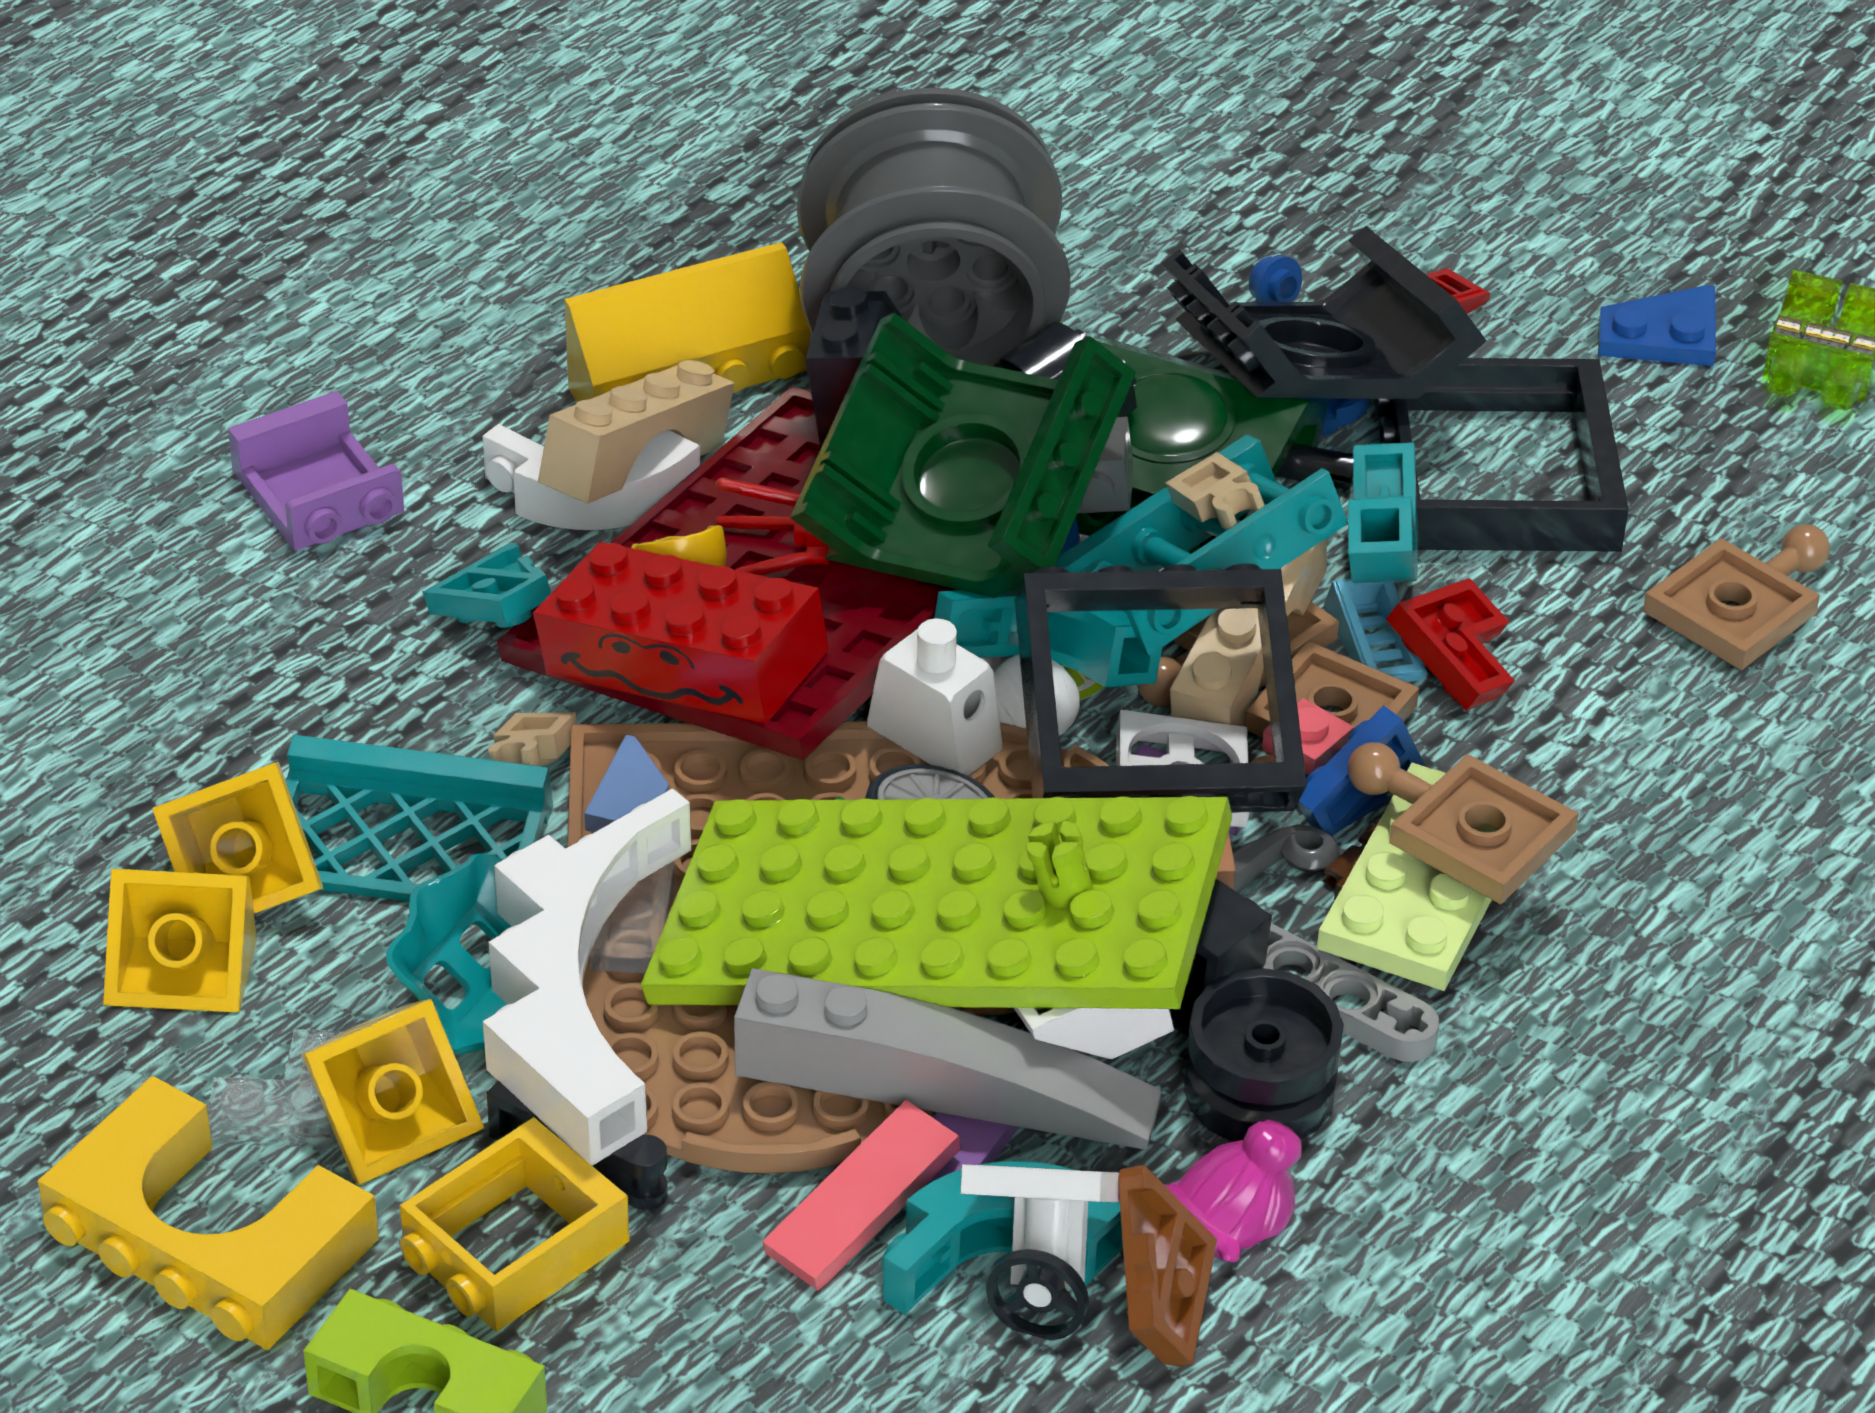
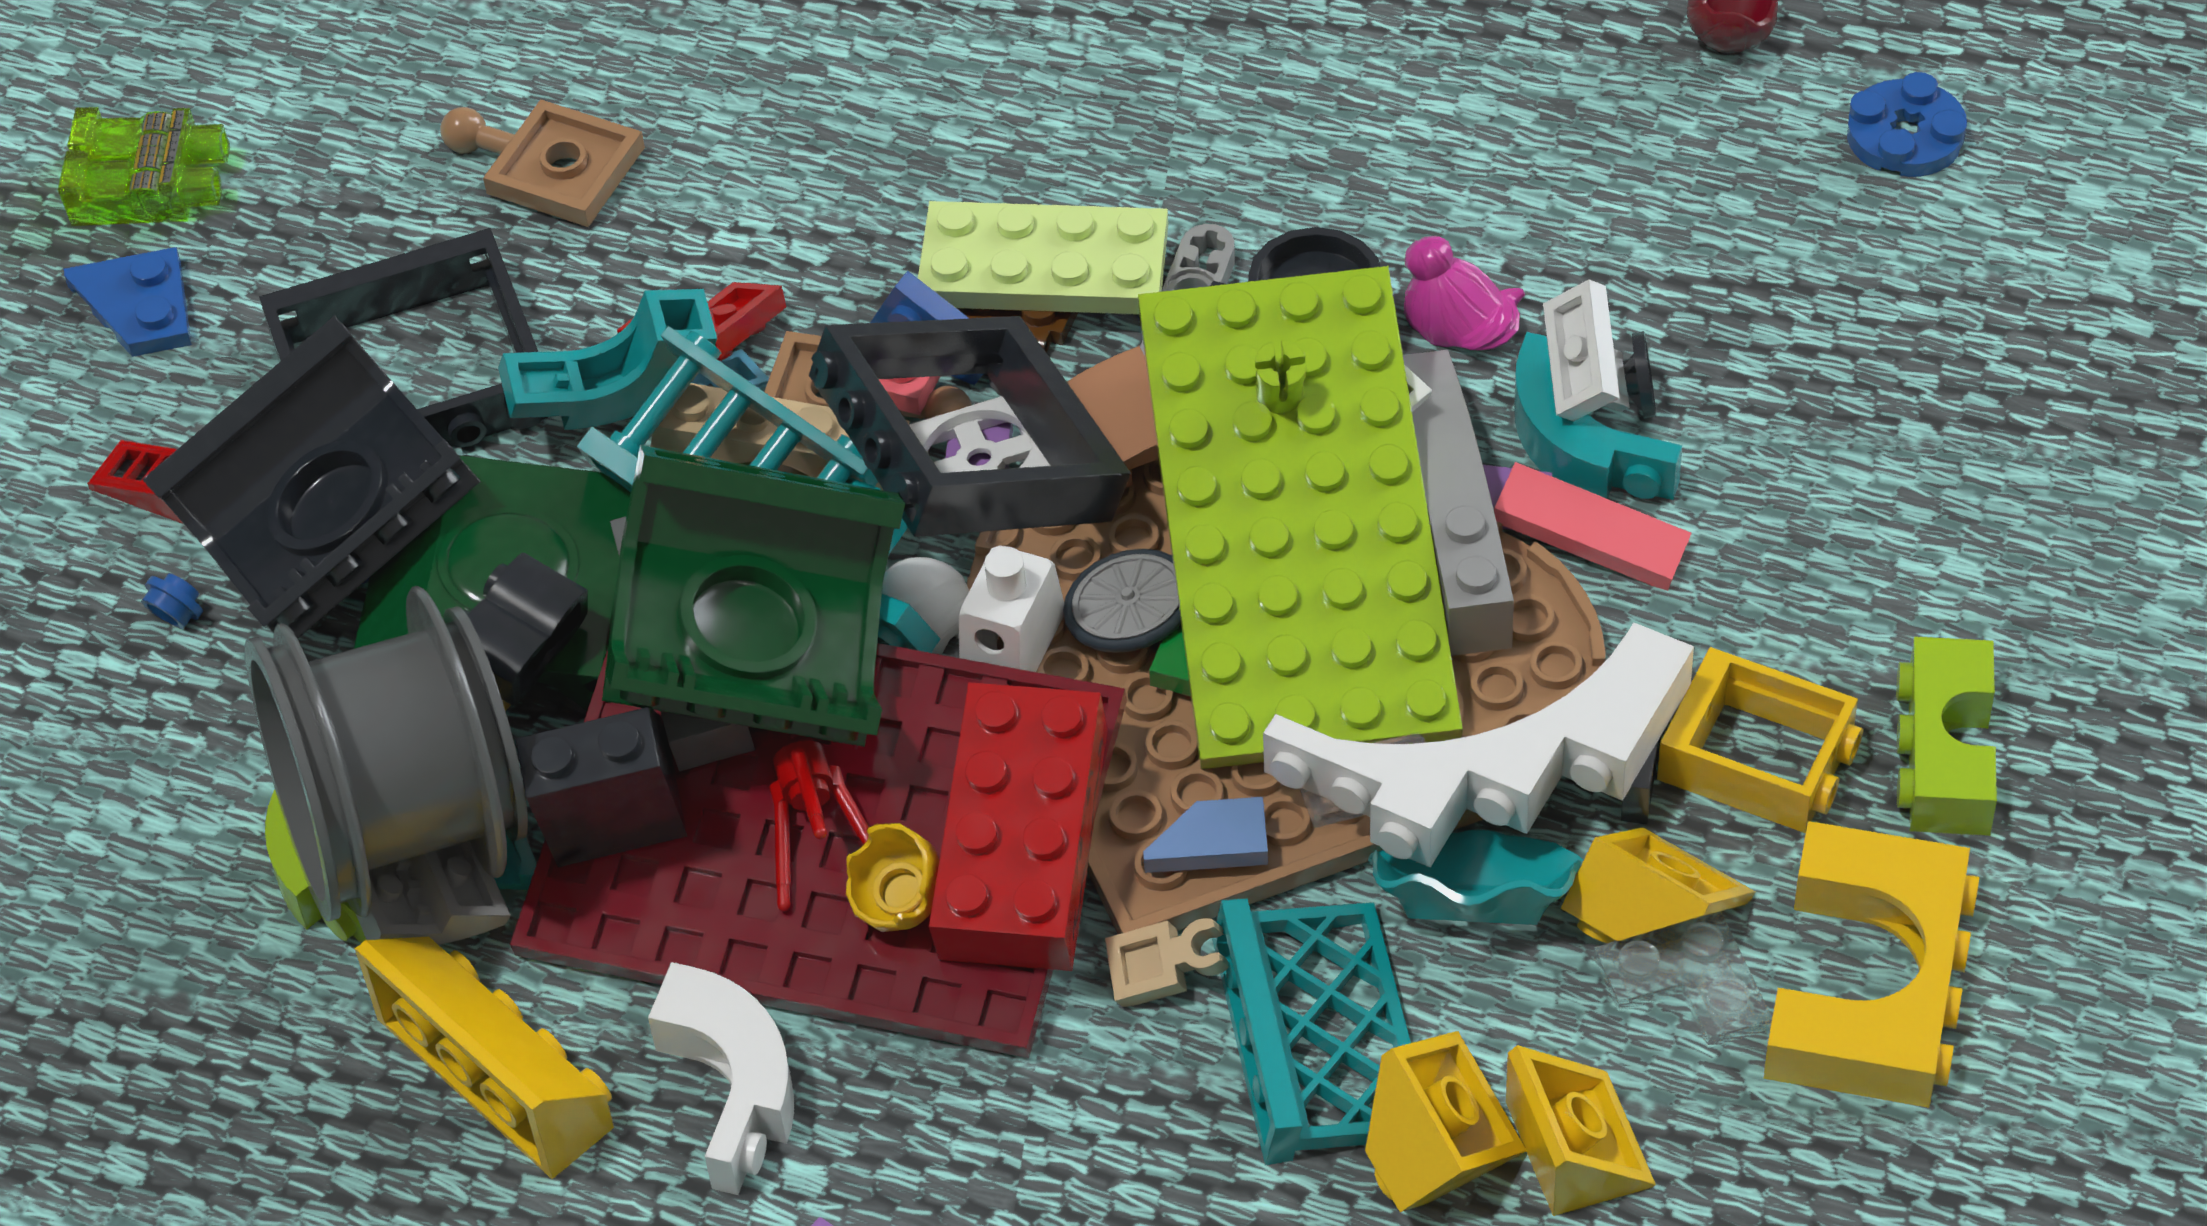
camera: 105 degrees left, 10 degrees up
(493, 589) = (951, 1076): teal wing -> none
(599, 439) = (754, 1002): tan arch -> none
(1165, 1266) = (1623, 296): dark orange wing -> none
(1215, 491) = (695, 427): tan plate -> none
(1445, 815) = (1028, 225): medium nougat plate -> none

